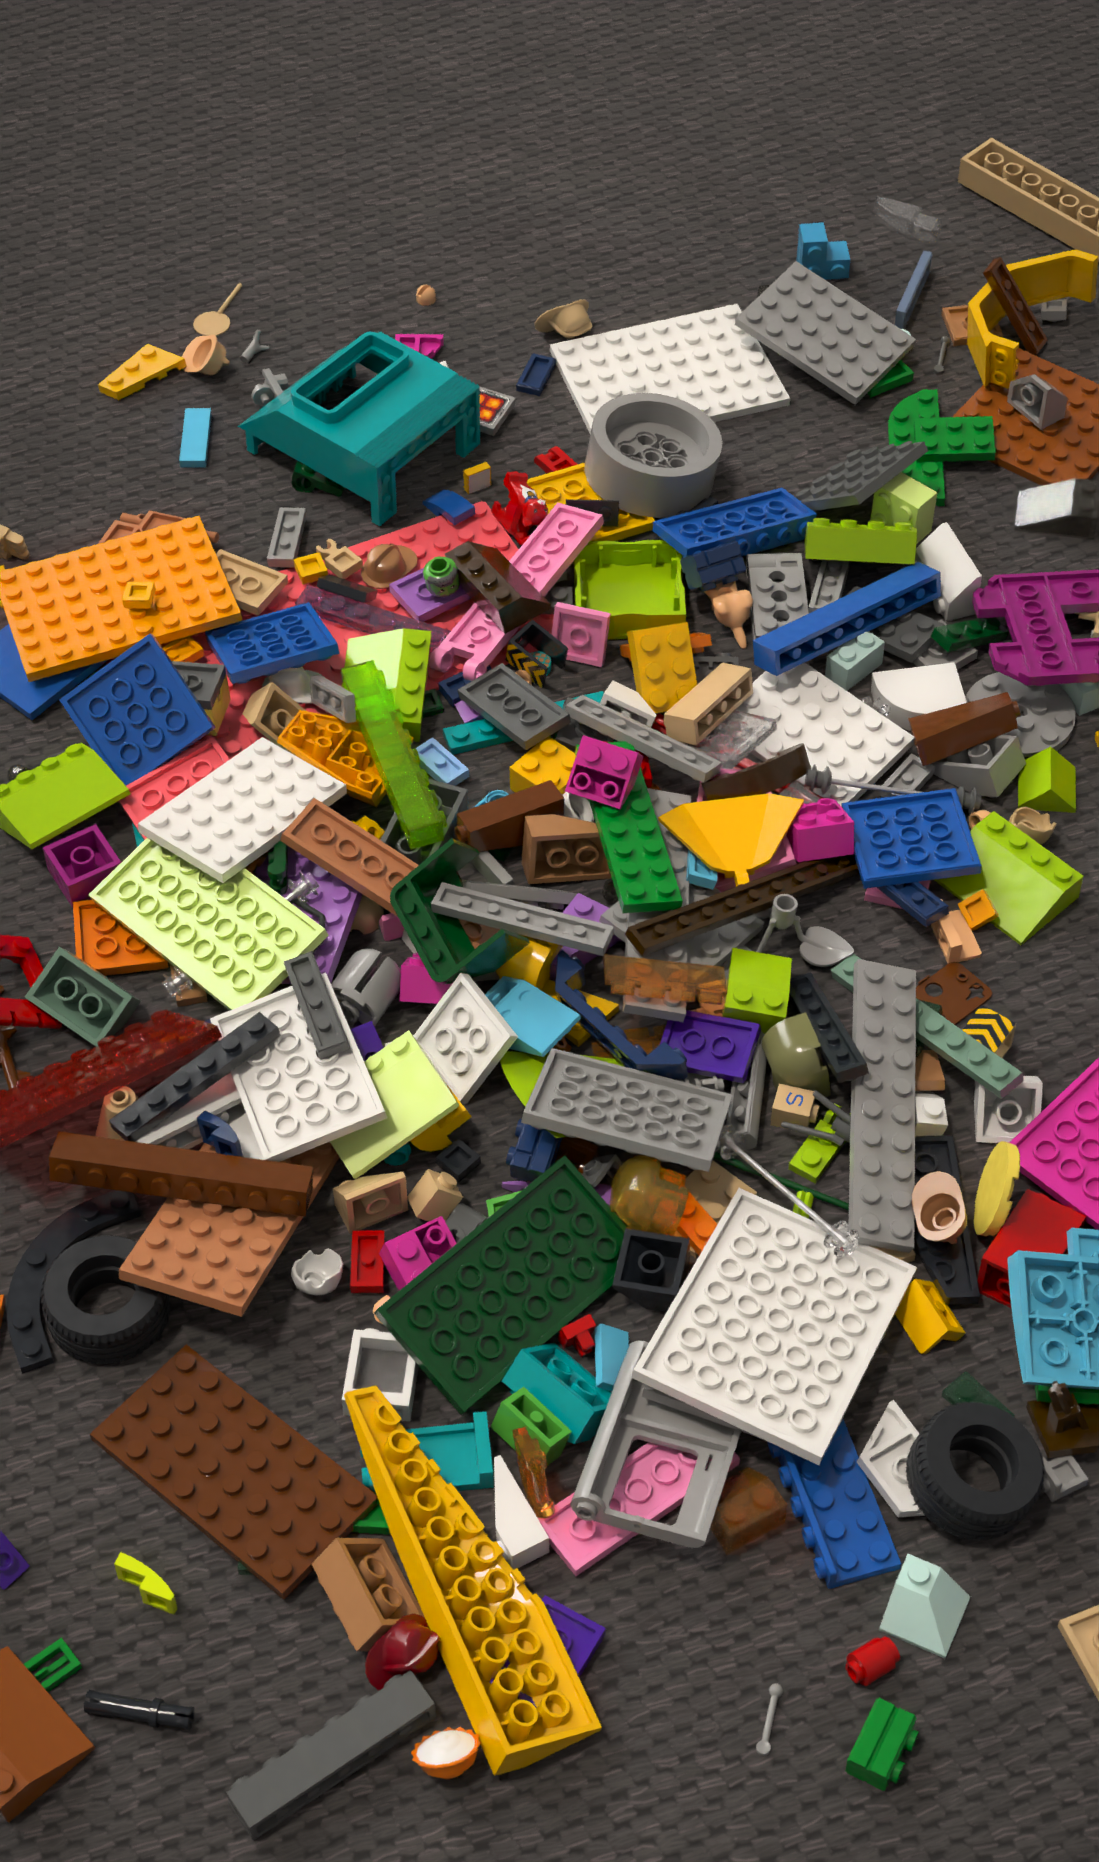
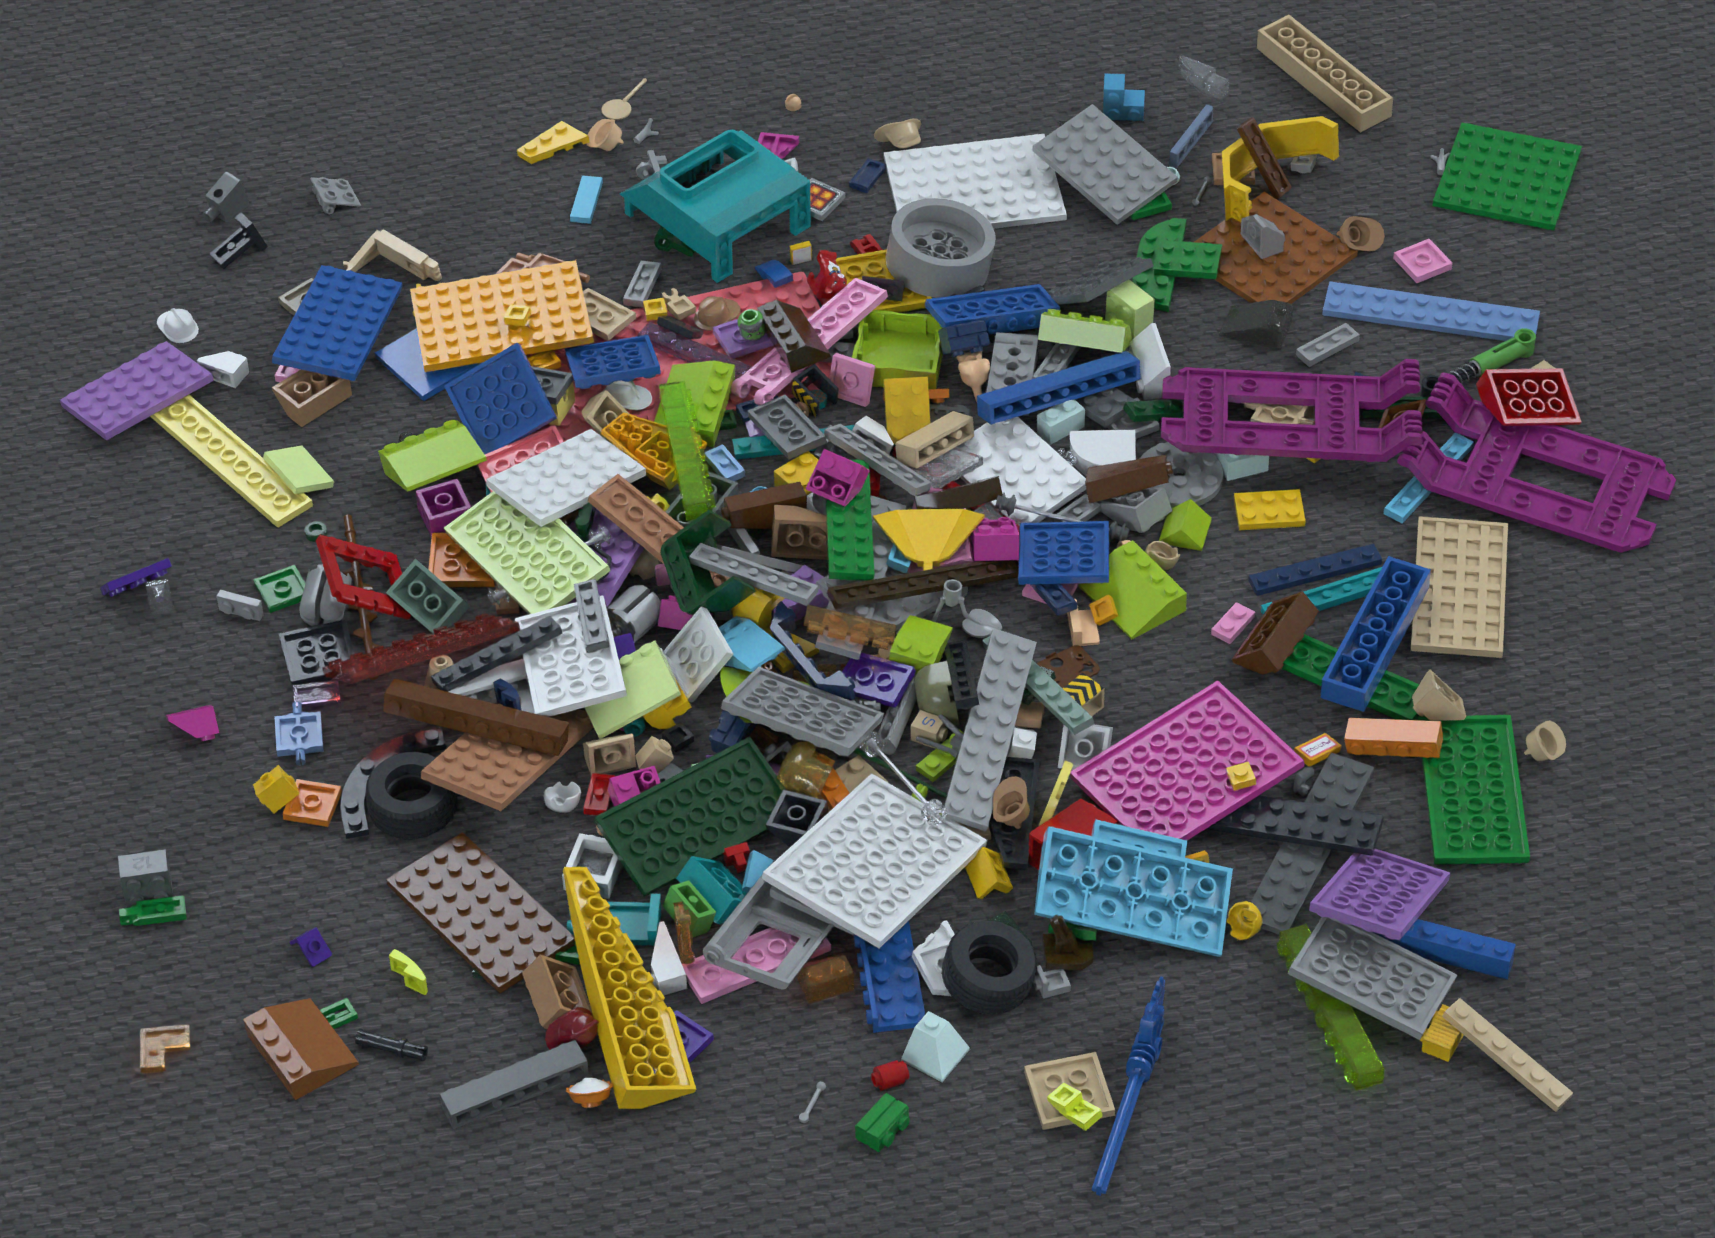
camera: 10 degrees right, 5 degrees down
(333, 698) = (650, 406): light grey tile -> none

